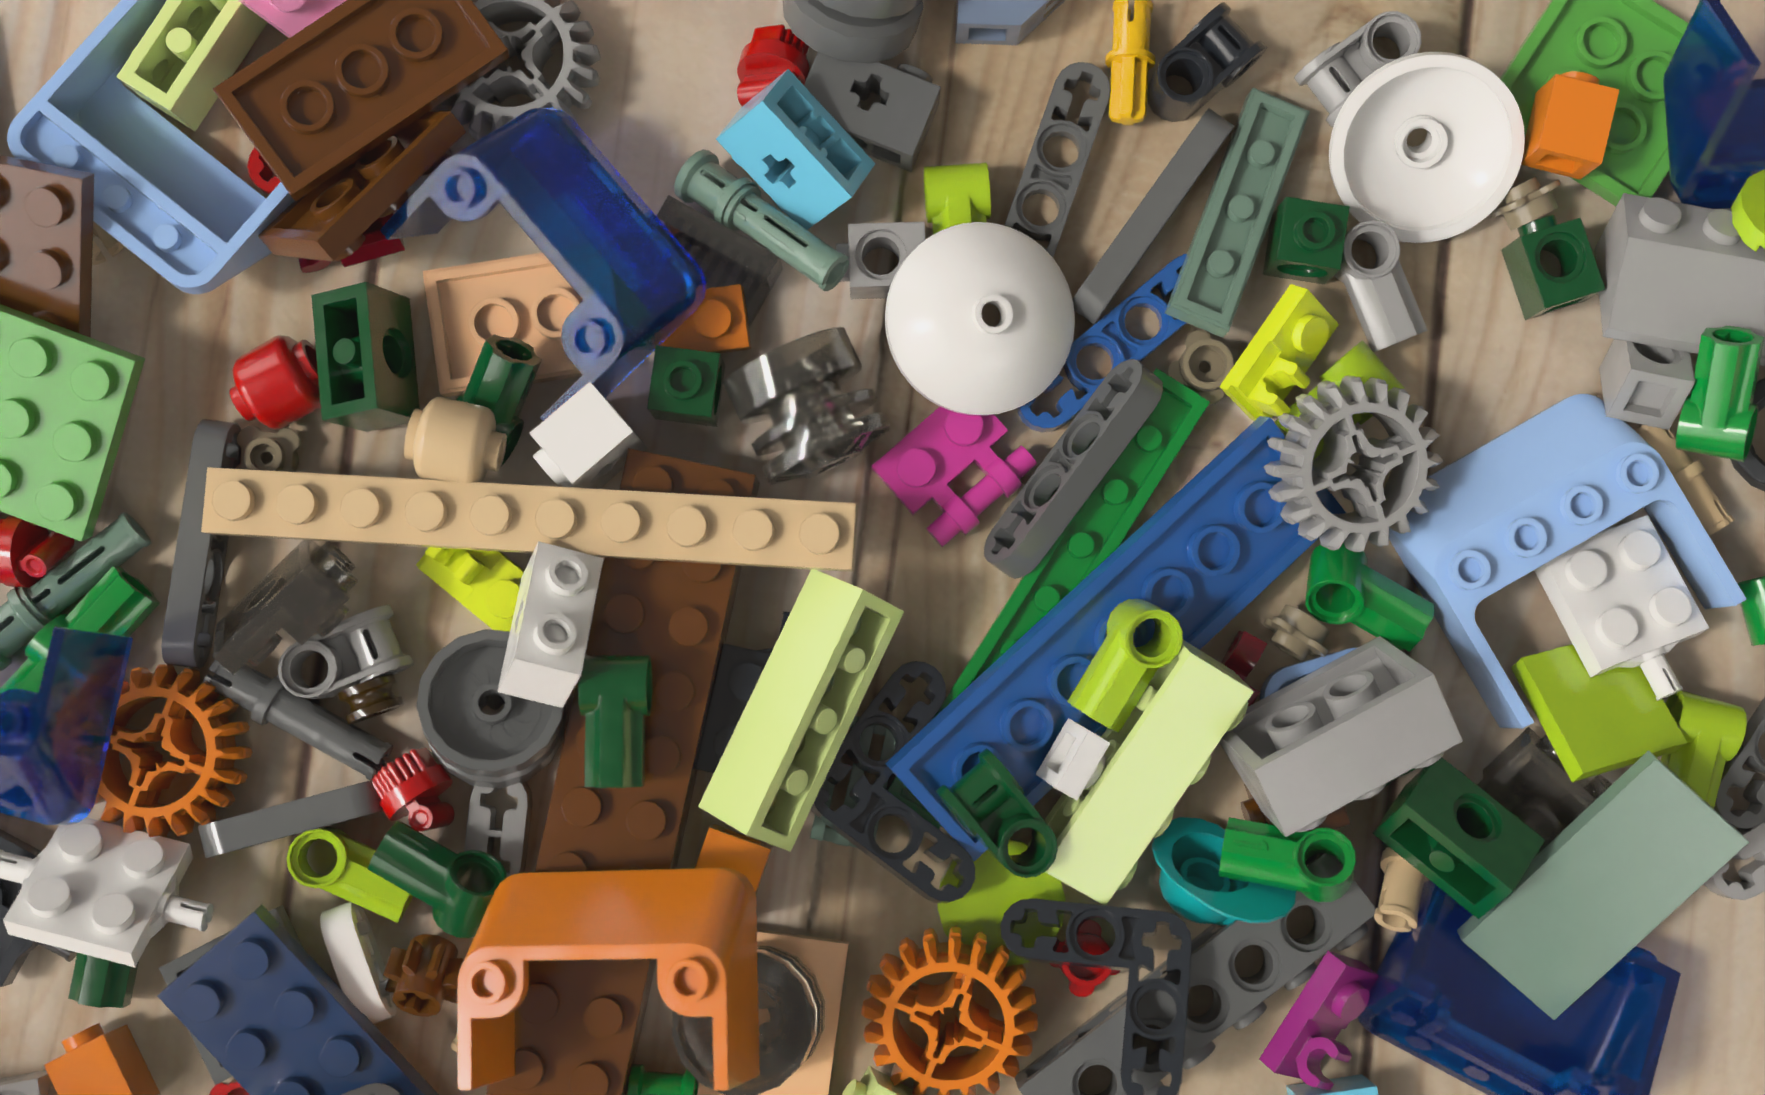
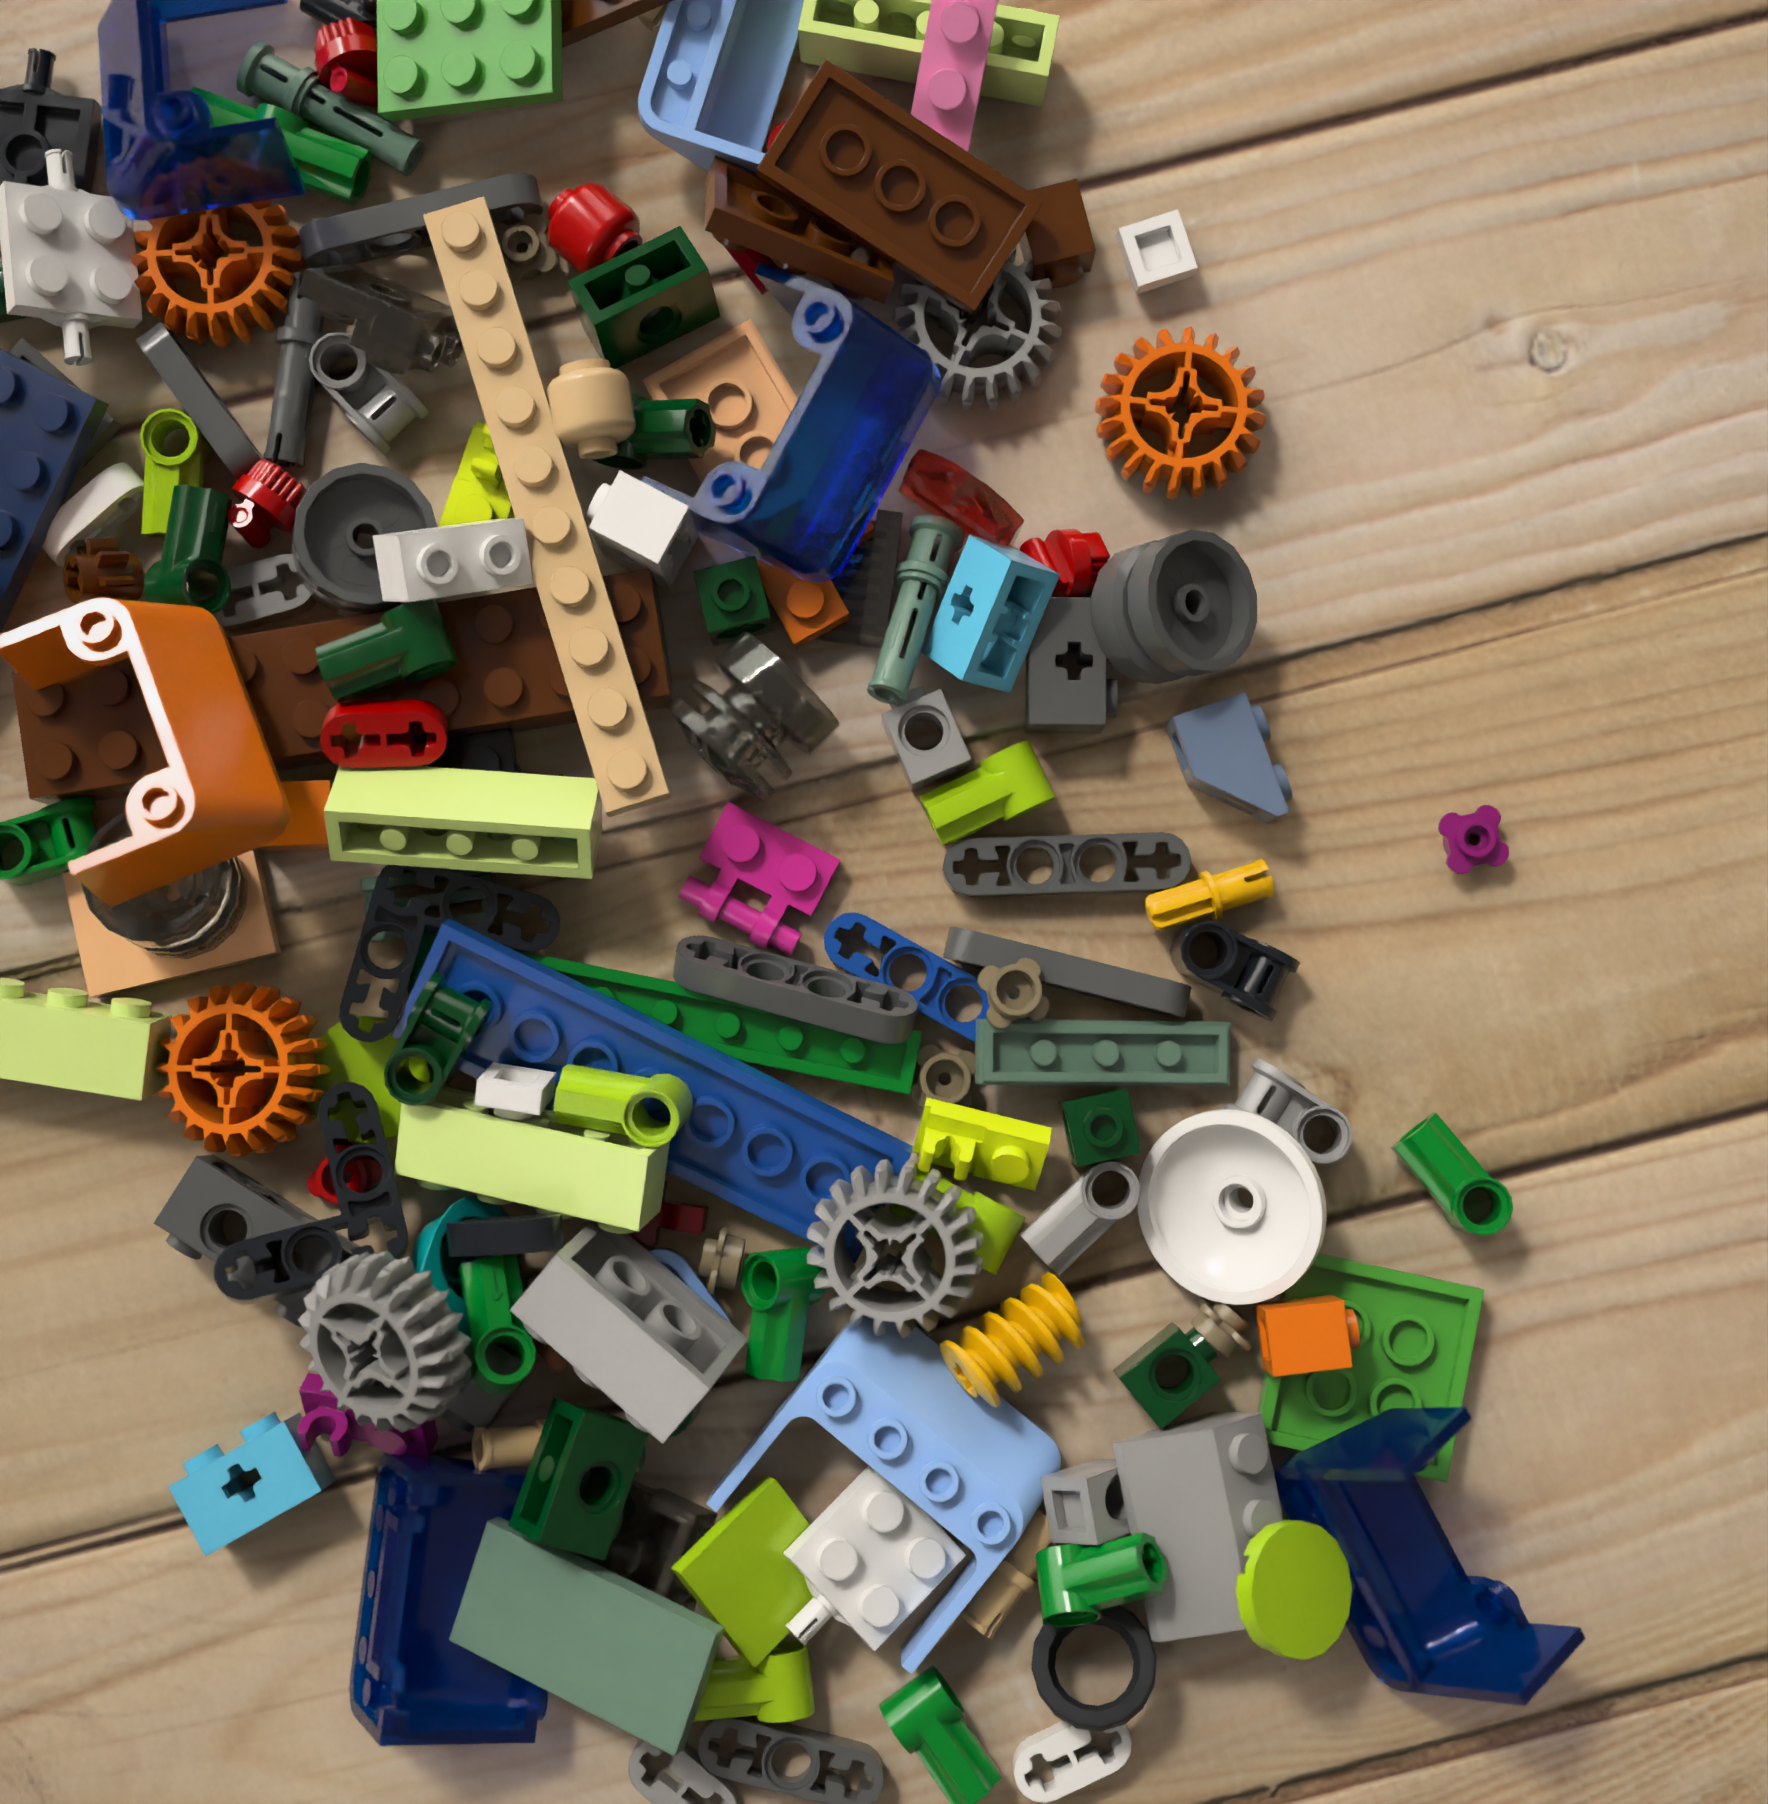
camera: 70 degrees right, 0 degrees up
(370, 699) = (336, 429): dark brown bush -> none
(673, 136) = (961, 497): none -> clear red slope
(690, 754) = (384, 733): none -> red beam
(939, 327) = (907, 800): white dish -> none
(1157, 248) = (1024, 977): none -> dark tan plate
(1208, 818) = (505, 1235): none -> black beam
(1270, 966) = (384, 1341): none -> light grey gear
(1473, 390) = (1014, 1339): none -> yellow piece

